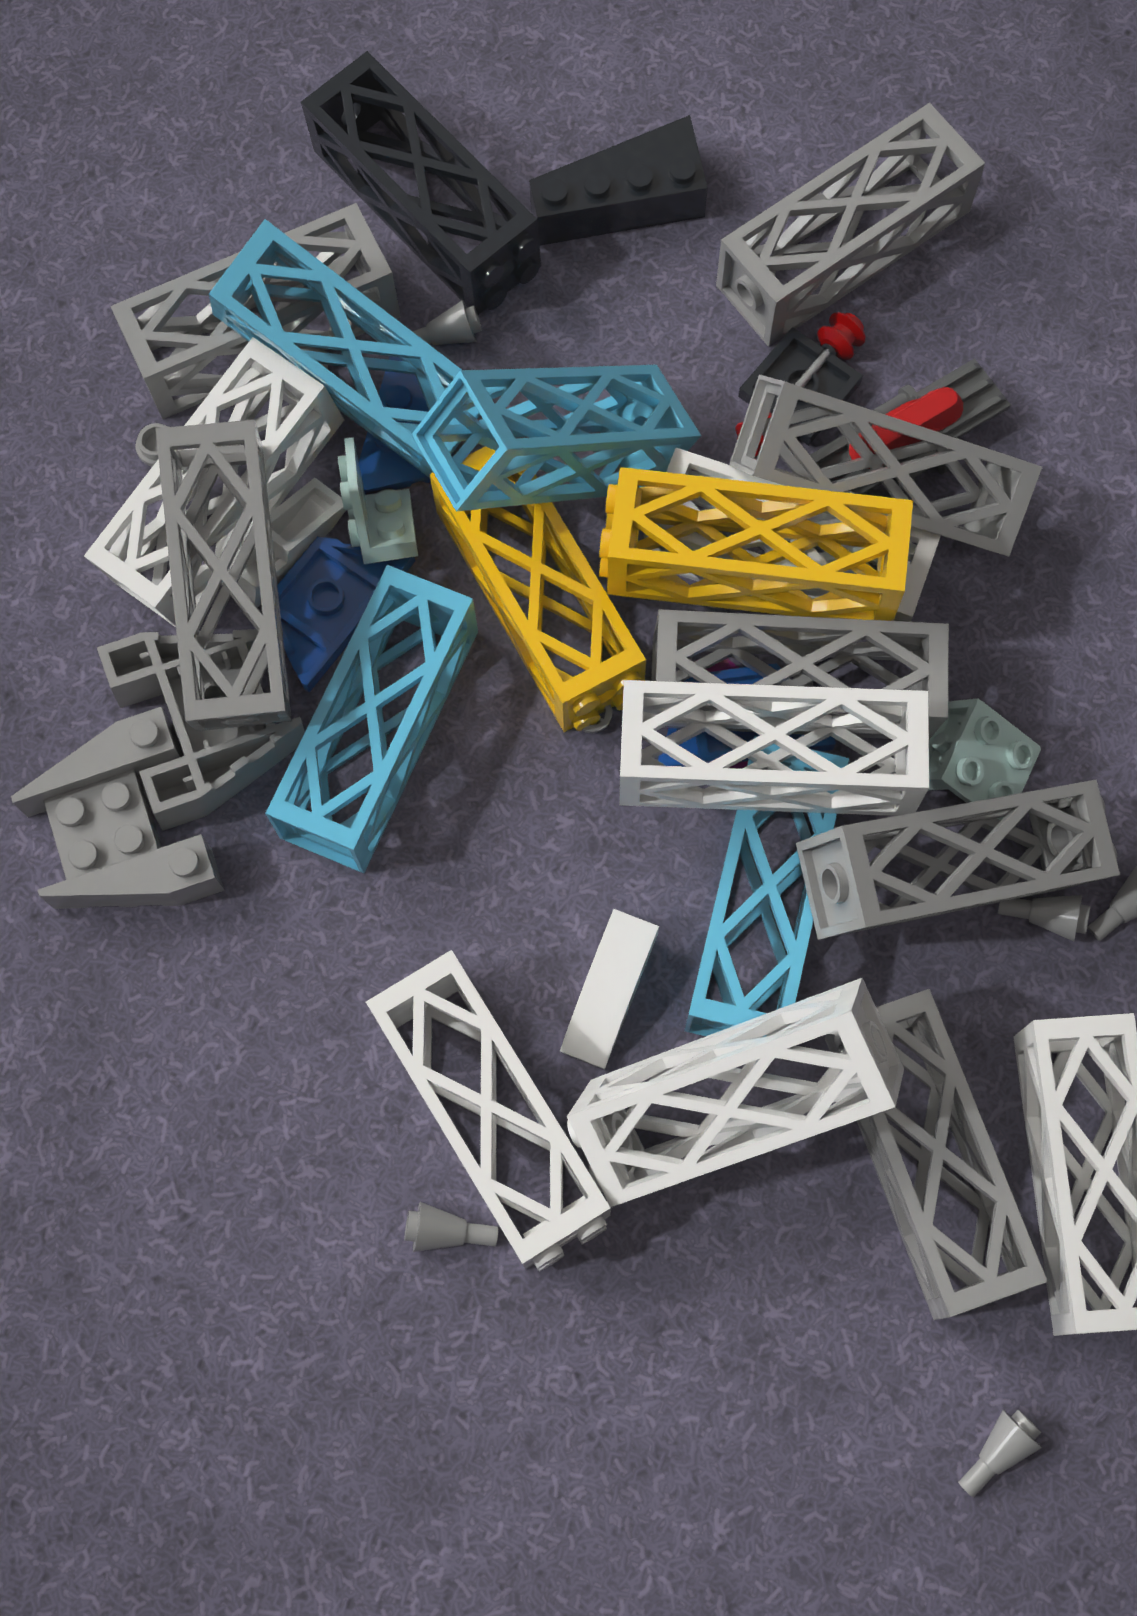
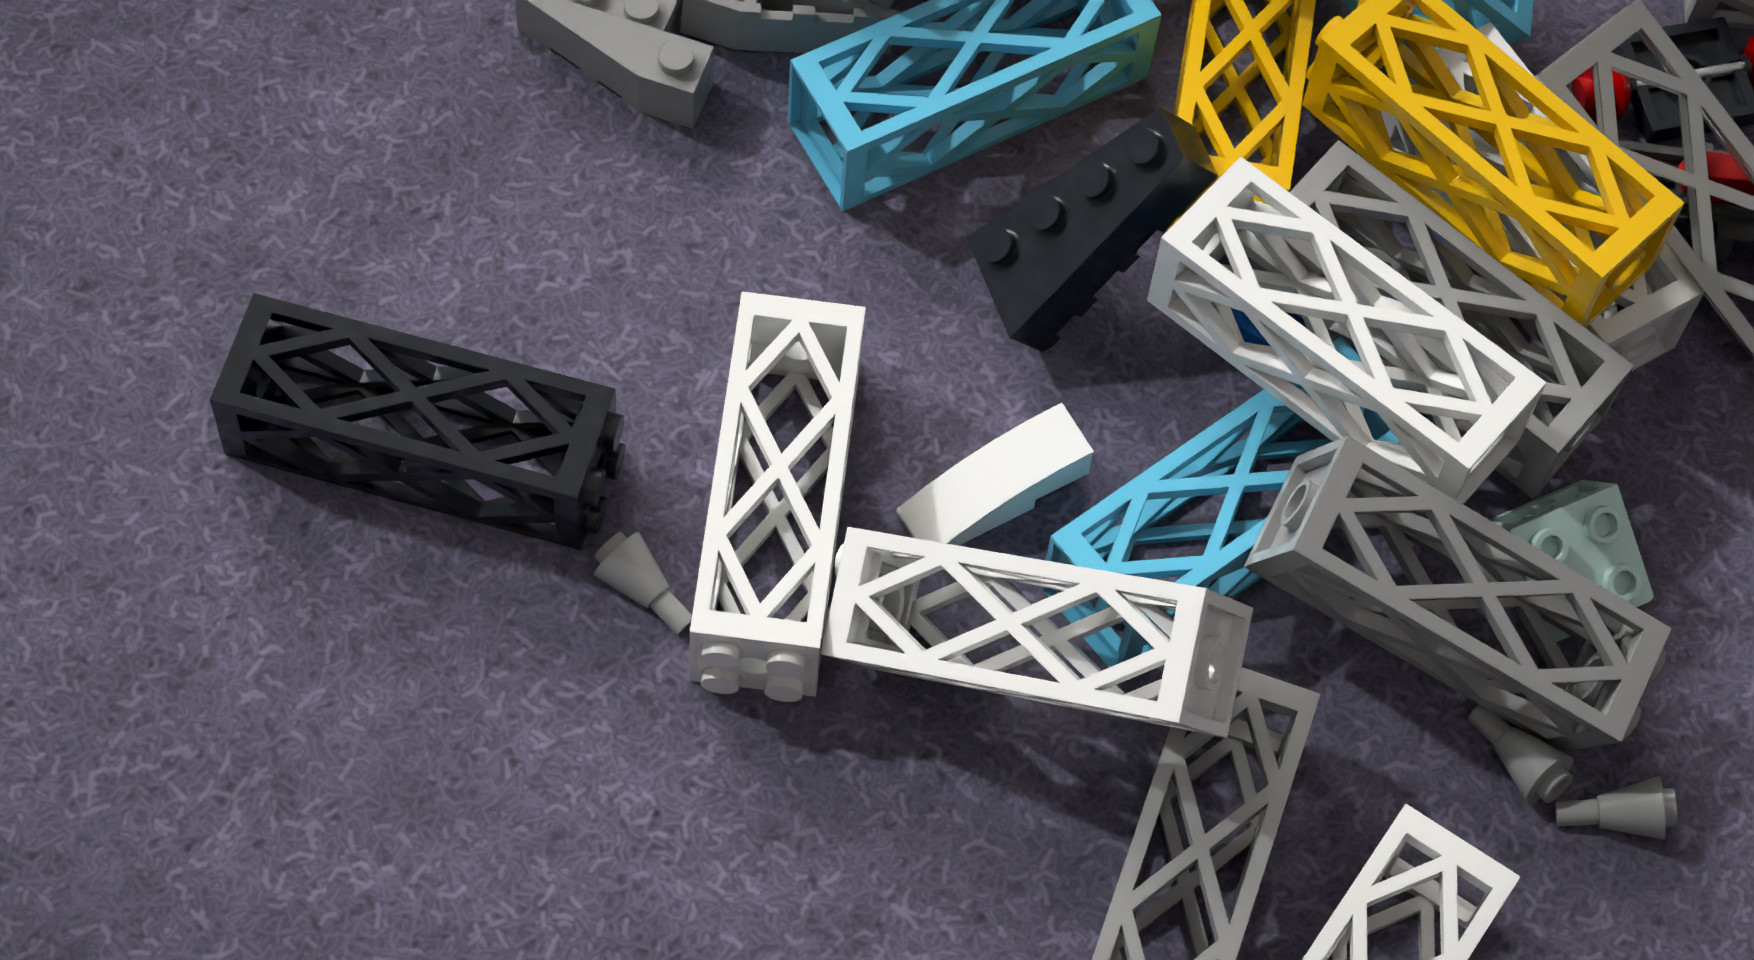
camera: 30 degrees right, 10 degrees down
(86, 1286) = (256, 422): none -> black piece
(537, 781) = (1087, 224): none -> black wedge

